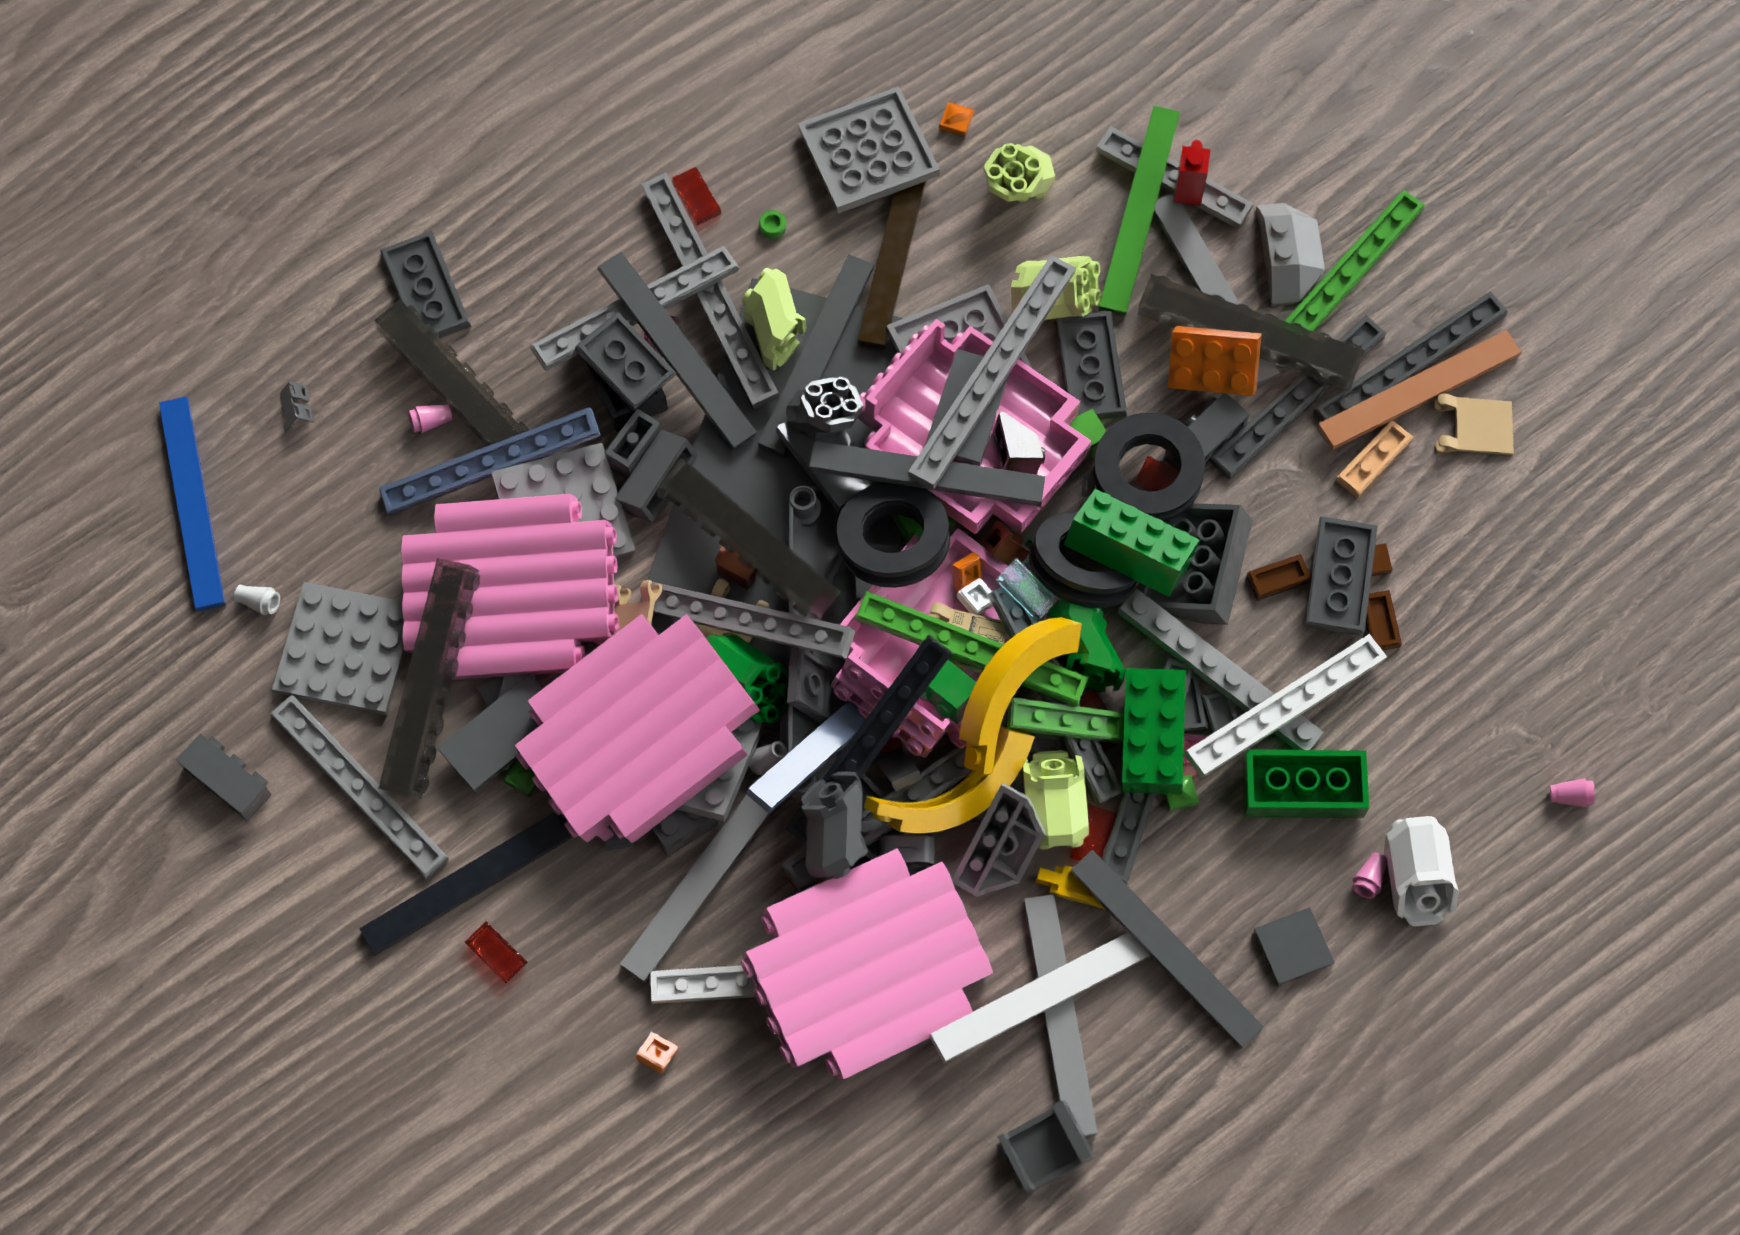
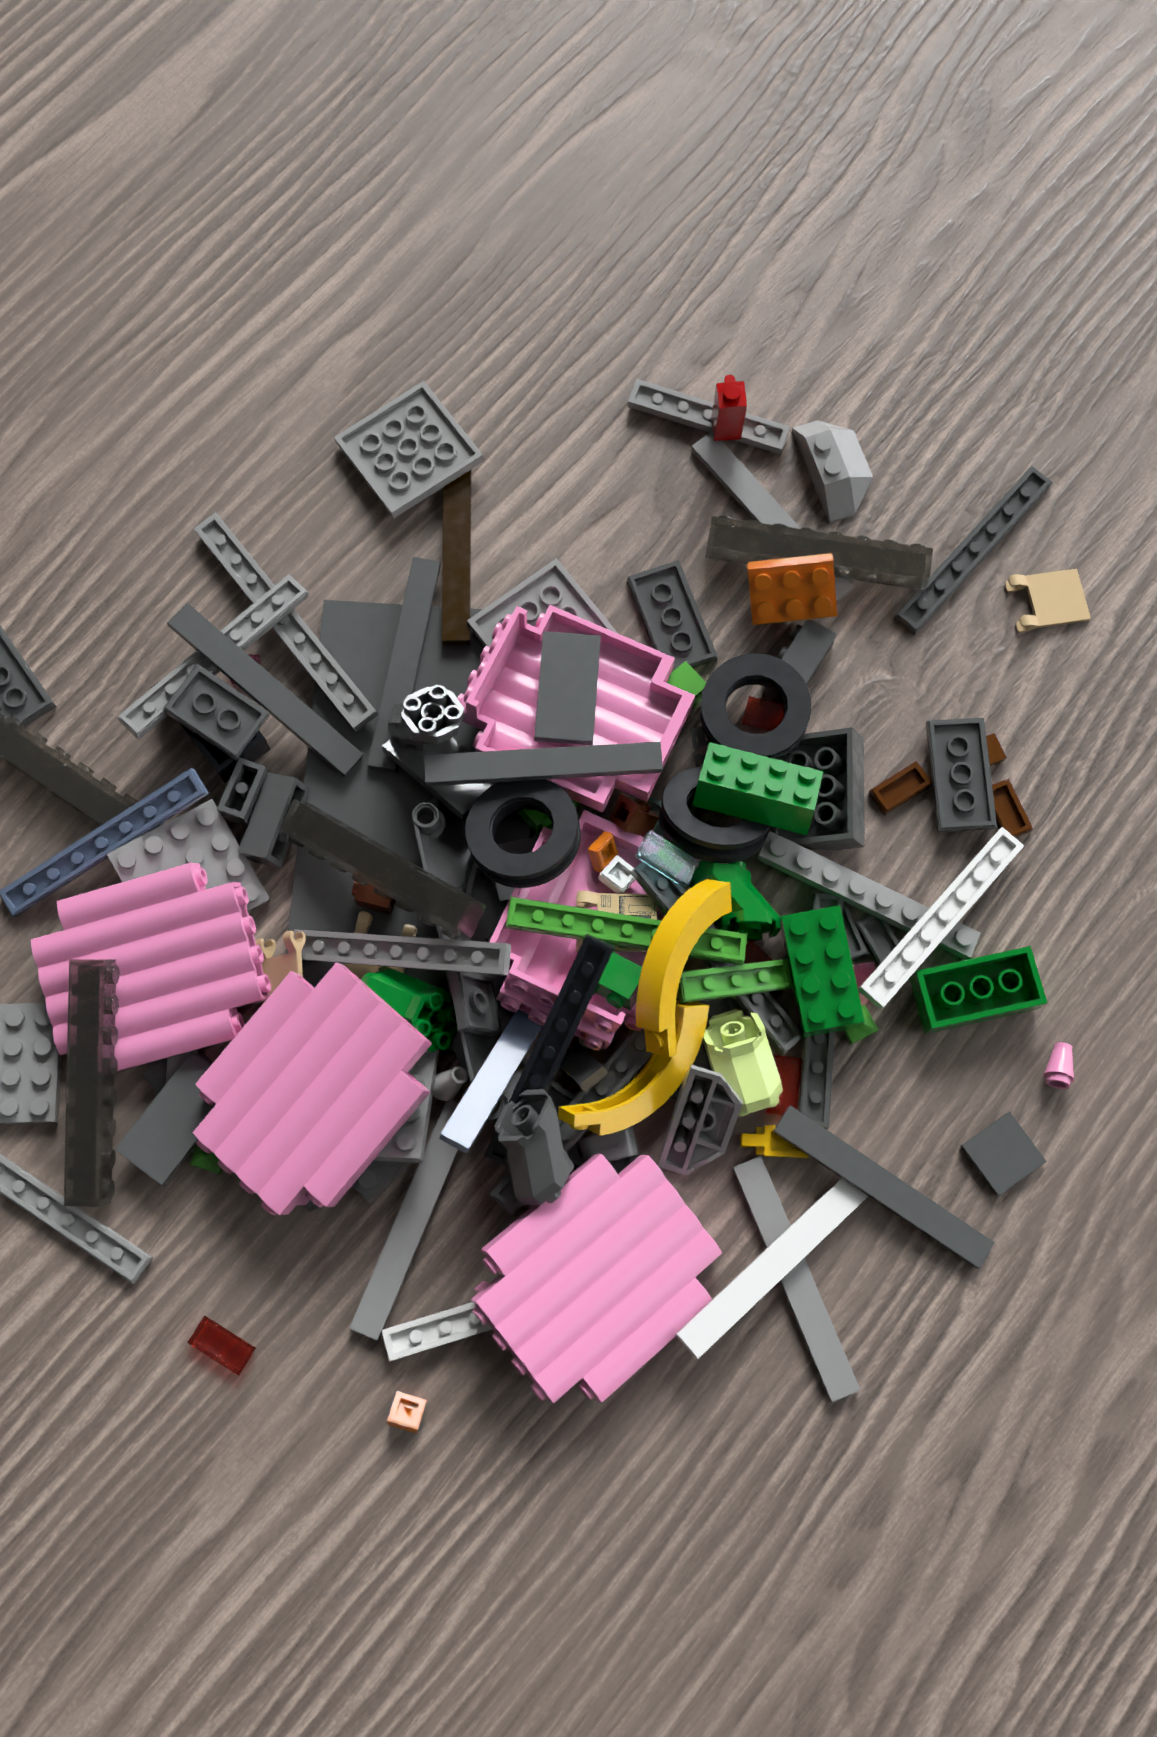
camera: 15 degrees left, 5 degrees up
(429, 417) = (33, 808): bright pink cone -> none
(466, 883) = (172, 1283): black tile -> none
(696, 196) = (250, 529): clear red tile -> none
(772, 224) = (331, 542): bright green tile -> none
(774, 317) = (354, 636): yellowish green brick -> none
(956, 119) = (486, 402): orange tile -> none
(991, 372) = (582, 650): light grey plate -> none
(1017, 446) = (624, 716): slope -> none
(1019, 172) = (560, 442): yellowish green brick -> none
(1045, 1148) = (813, 1419): dark grey panel -> none
(1077, 297) = (622, 549): yellowish green brick -> none
(1139, 210) = (684, 455): bright green tile -> none
(1286, 407) = (867, 620): dark grey tile -> none
(1357, 261) = (899, 463): bright green tile -> none
(1374, 458) = (962, 652): light nougat tile -> none
(1418, 390) = (988, 576): nougat tile -> none
(1420, 870) = (1108, 1052): white brick -> none

